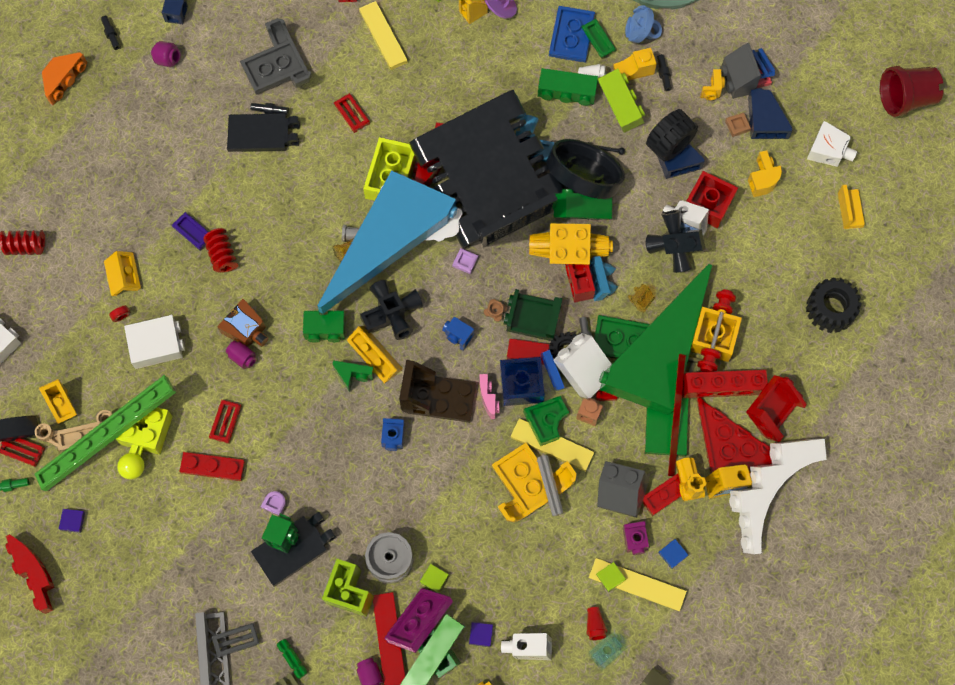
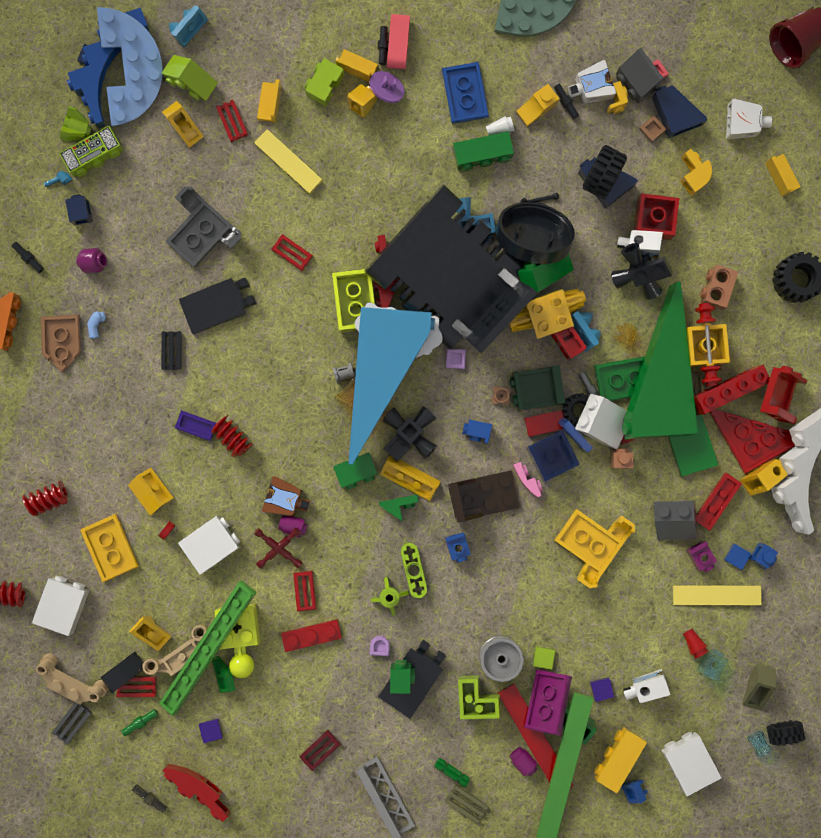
camera: 25 degrees left, 15 degrees up
(59, 311) = (109, 548): none -> yellow tile
(105, 111) = (61, 339): none -> medium nougat tile
(108, 471) = (223, 676): none -> green tile
(139, 111) = (93, 323): none -> light blue arm
(189, 583) = (311, 747): none -> dark red tile
(207, 143) = (171, 334): none -> black tile
(217, 368) = (278, 548): none -> dark red piece
(253, 634) = (410, 765): dark grey tile -> none
(269, 108) = (213, 278): black bar -> none
(307, 460) = (389, 590): none -> lime brick
(347, 428) = (422, 583): none -> lime beam
(545, 419) = (585, 480): green tile -> none
(550, 485) = (613, 541): light grey axle -> none
(560, 449) = (598, 500): light yellow tile -> none
(598, 38) = (493, 89): green tile -> none
(611, 577) = (693, 598): lime tile -> none
(622, 100) = (539, 146): lime brick -> none
(640, 24) = (529, 61): medium blue tile -> none
(676, 416) = (700, 435): red sticker -> none
(691, 483) = (734, 495): yellow piece -> none
(695, 66) = (593, 84): none -> torso
(700, 561) = (764, 556): none -> blue brick
(751, 288) = (723, 289): none -> nougat brick
(763, 63) = (653, 54): blue tile -> none

